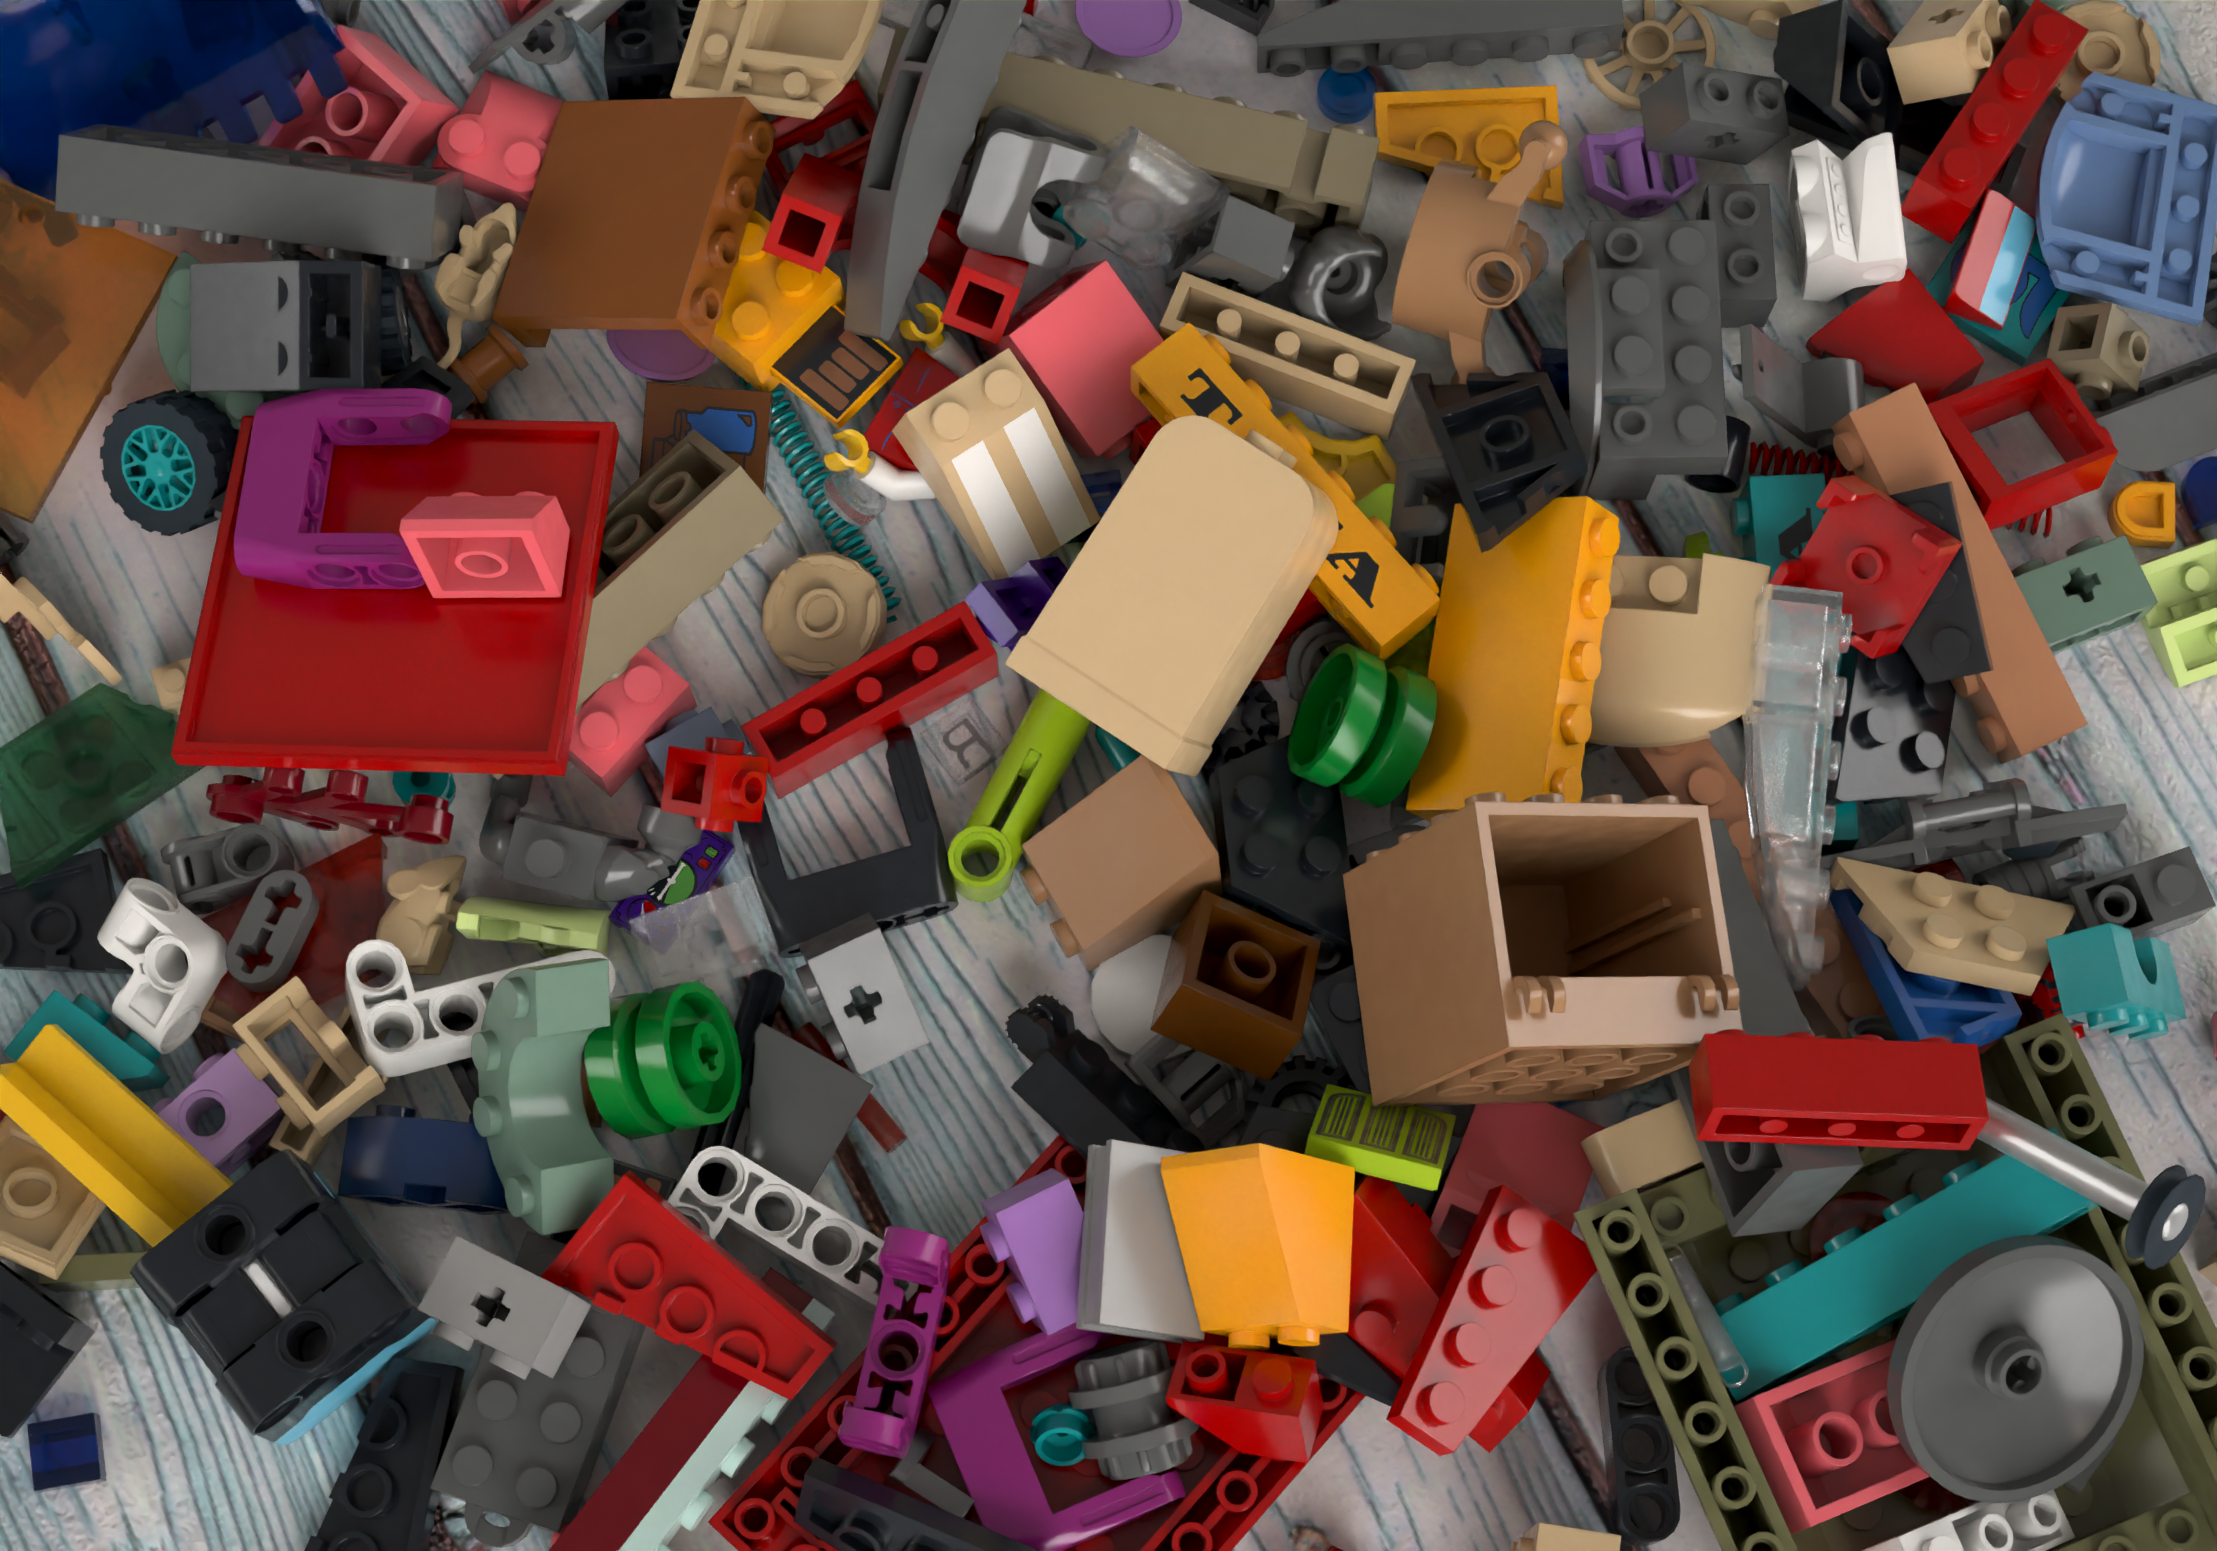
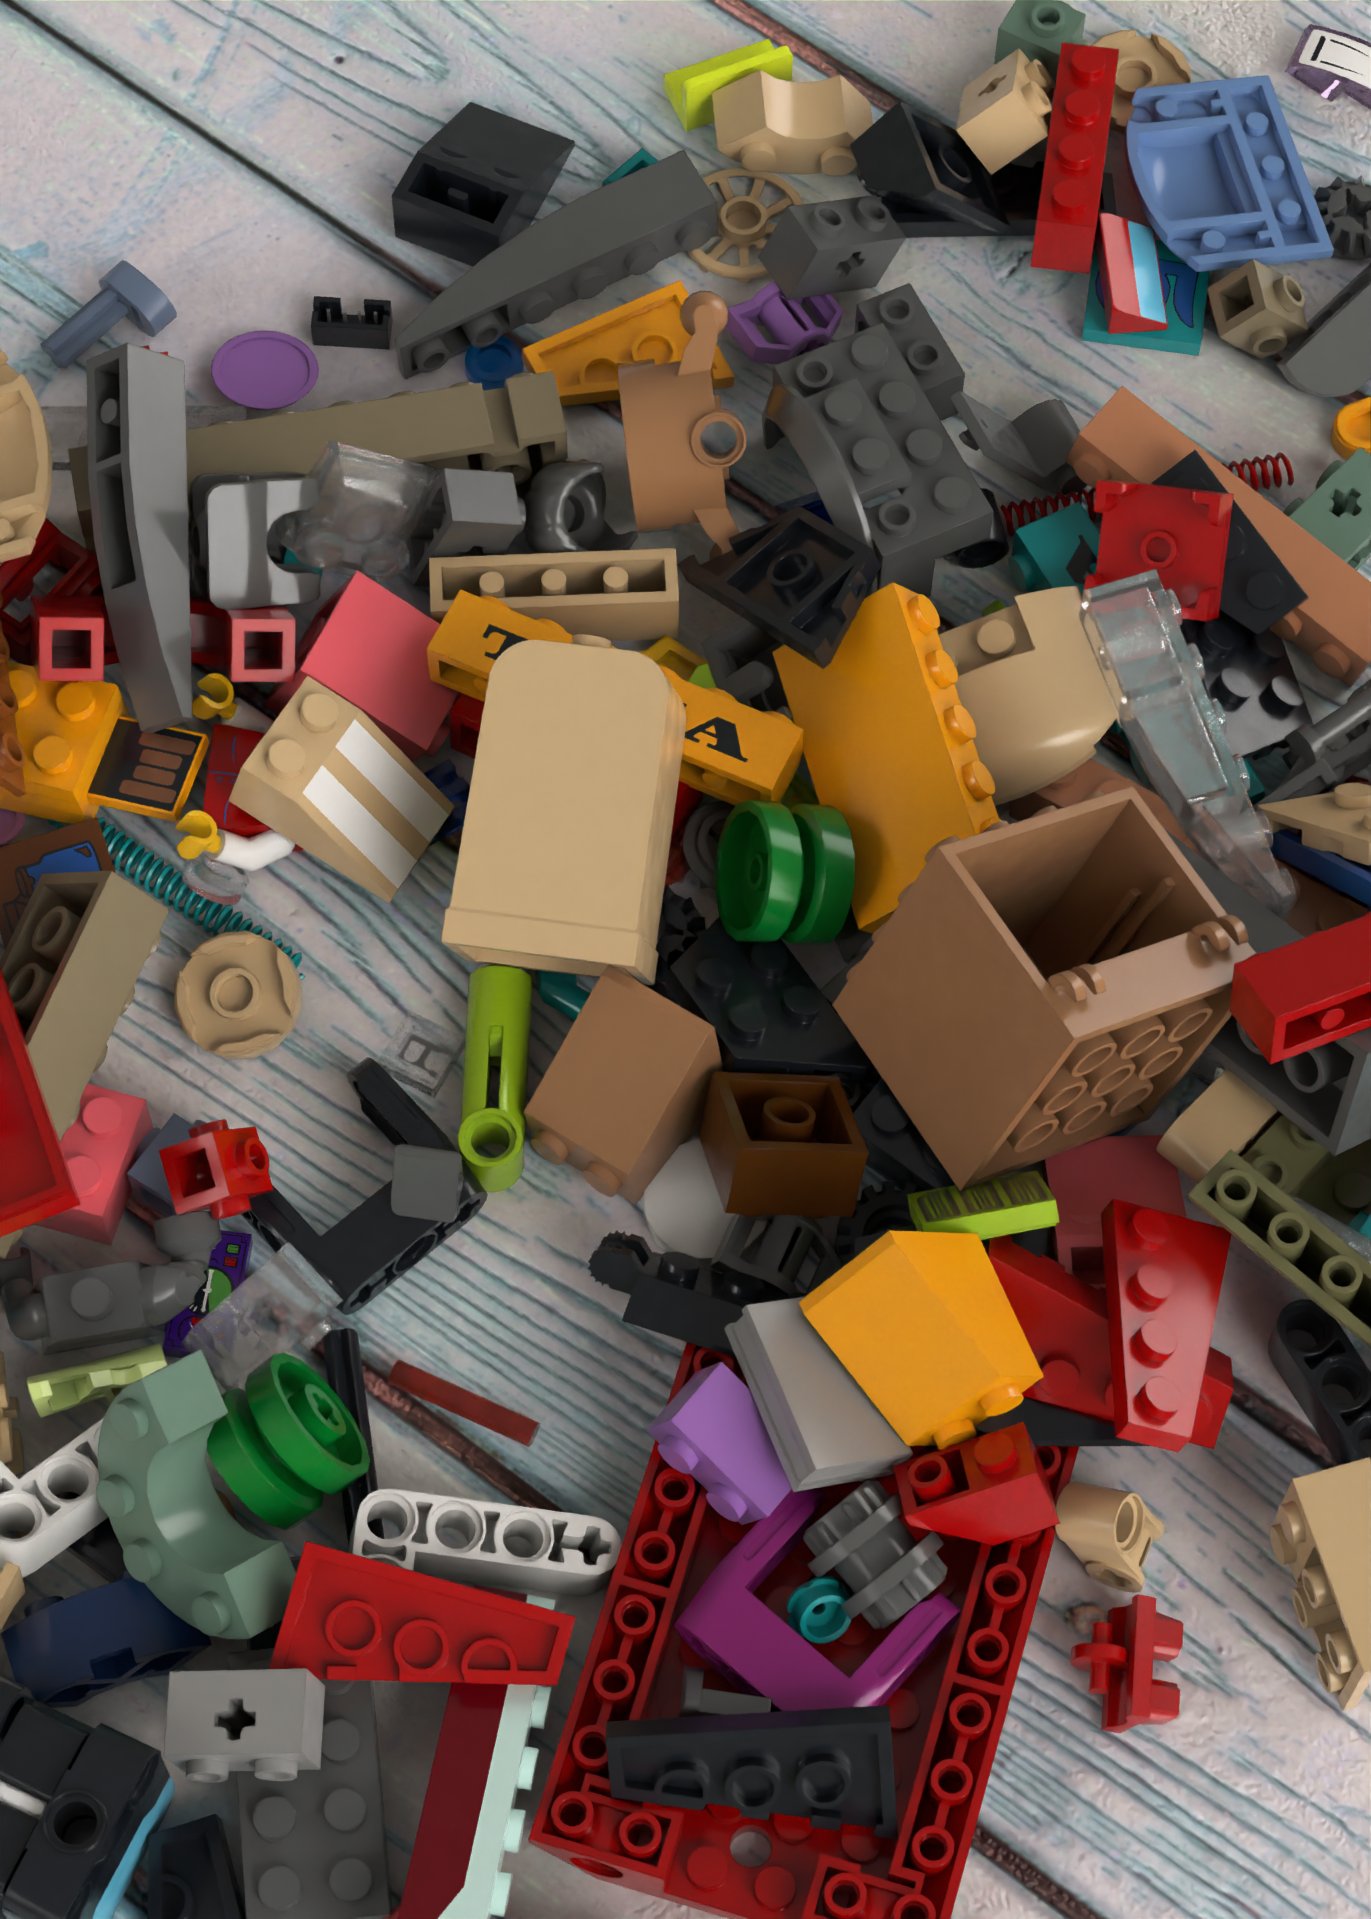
camera: 25 degrees left, 10 degrees down
(798, 1108) = (427, 1430): dark grey slope -> none
(872, 699) = (324, 1040): red brick -> none
(888, 1020) = (472, 1313): brick -> none
(899, 877) = (426, 1183): none -> dark grey slope
(905, 1257) = (649, 1639): magenta connector -> none
(1012, 605) = (417, 906): dark purple brick -> none
(1357, 1479) = (1108, 1532): none -> tan piece
(1846, 217) = (988, 285): white piece -> none
(1902, 340) = (1085, 368): red slope -> none
(2060, 415) = (1241, 369): red window -> none

